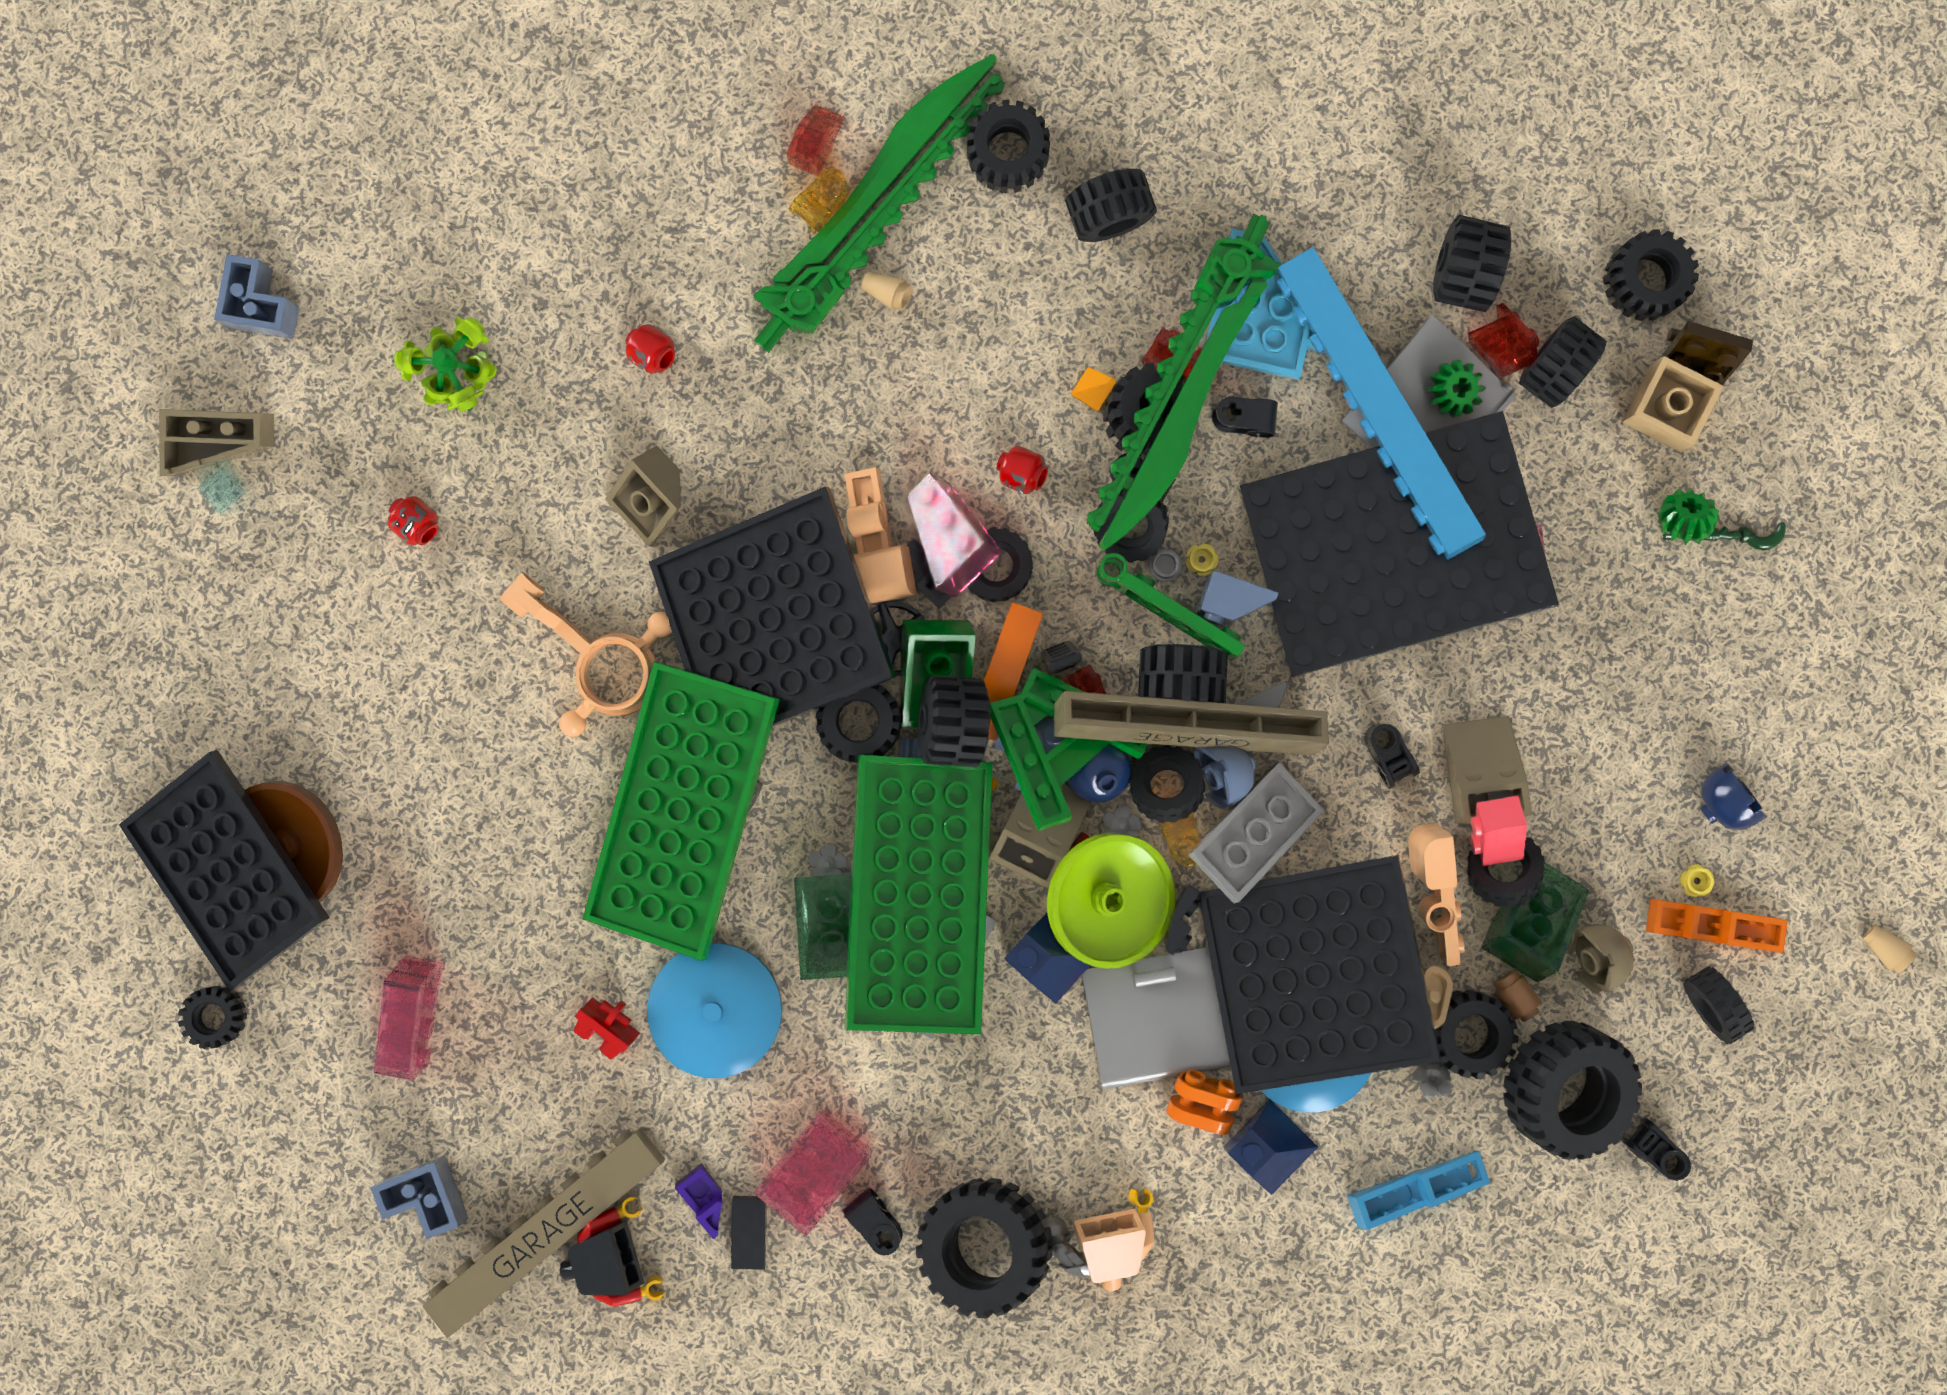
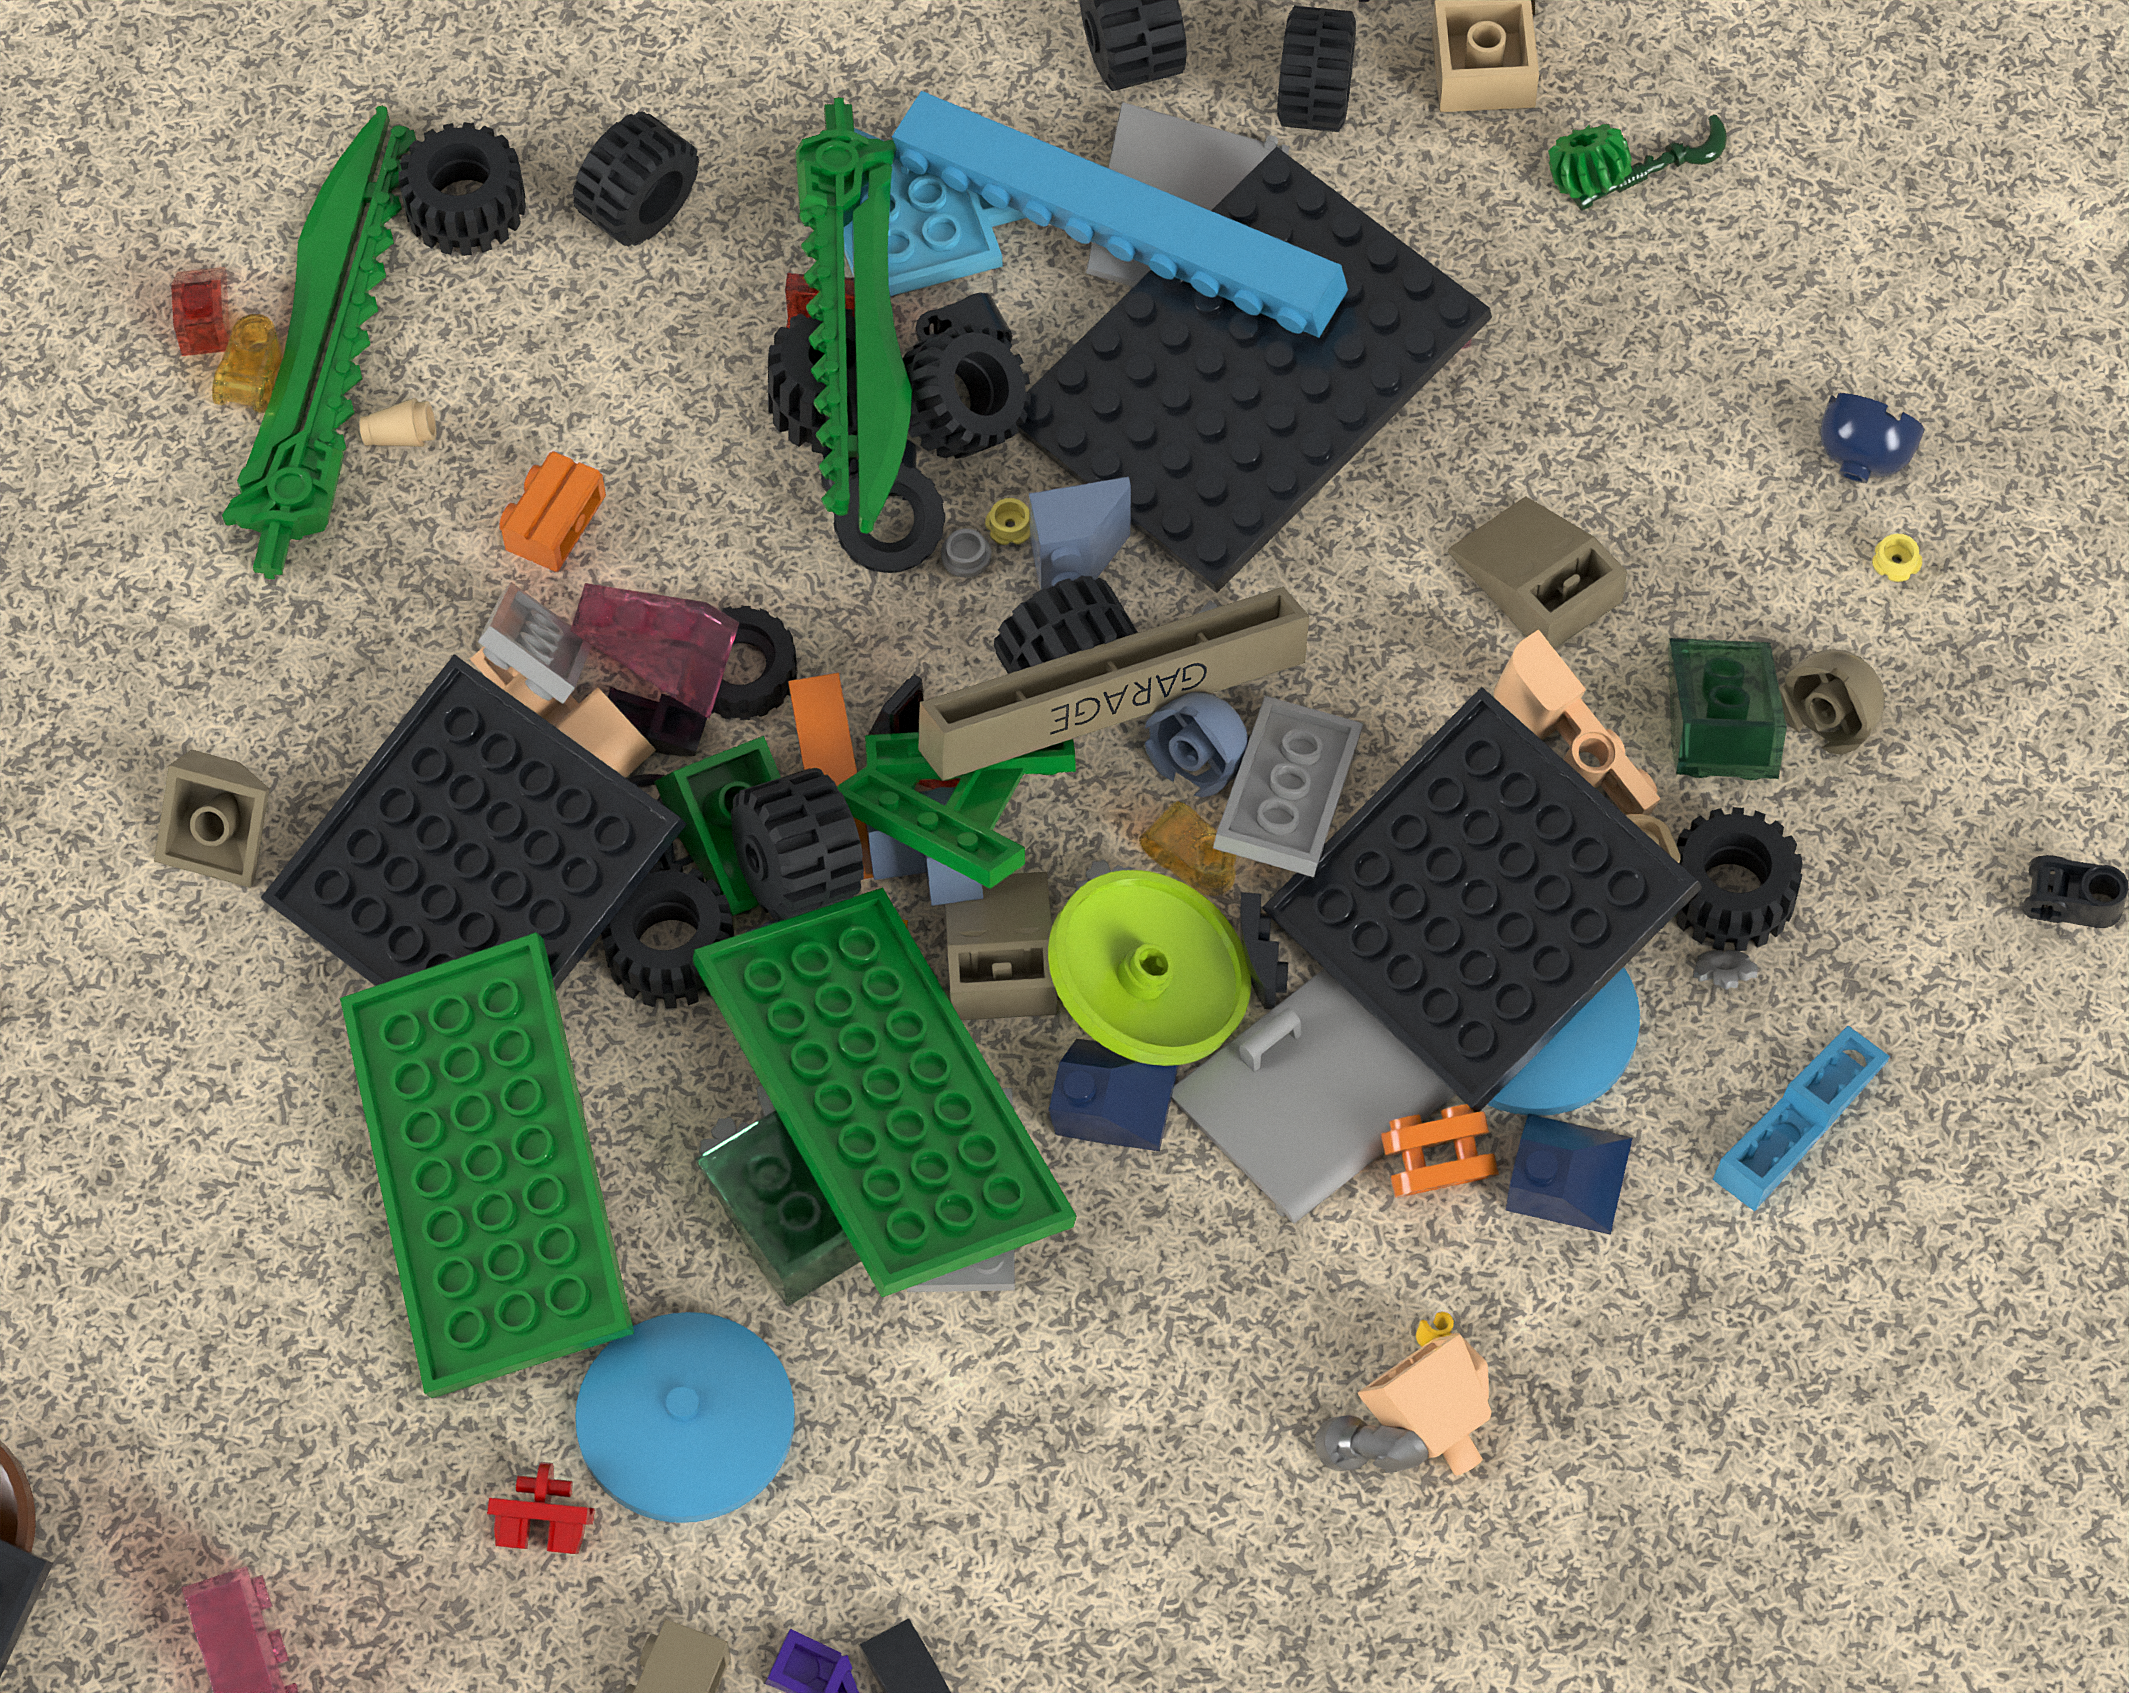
camera: 30 degrees left, 25 degrees down
(525, 597) = (114, 1010): light nougat piece -> none
(650, 349) = (116, 646): red head -> none
(813, 1172) = (954, 1539): clear pink brick -> none
(870, 1218) = (1077, 1560): black piece -> none
(874, 506) = (535, 644): none -> light grey plate
(943, 401) = (552, 511): none -> orange brick
(951, 1273) = (1200, 1443): black tyre -> none
(1022, 470) = (706, 535): red head -> none
(1093, 388) = (743, 403): light orange slope -> none
(1102, 776) = (1042, 819): dark blue cylinder -> none
(1141, 590) = (981, 583): green hinge -> none
(1167, 808) = (1147, 813): black tyre -> none
(1236, 480) = (992, 381): none -> black tyre
(1391, 756) = (1407, 616): black piece -> none
(1451, 376) = (1204, 162): green gear -> none
(1499, 831) = (1595, 601): coral brick -> none
(1505, 342) = (1237, 86): clear red bracket -> none
(1512, 892) = (1650, 680): black tyre -> none
(1517, 996) = (1766, 798): medium nougat brick -> none
(1600, 1110) = (1944, 825): black tyre -> none
(1716, 925) = (1955, 596): orange slope -> none
(1719, 1005) = (2029, 694): black tyre -> none

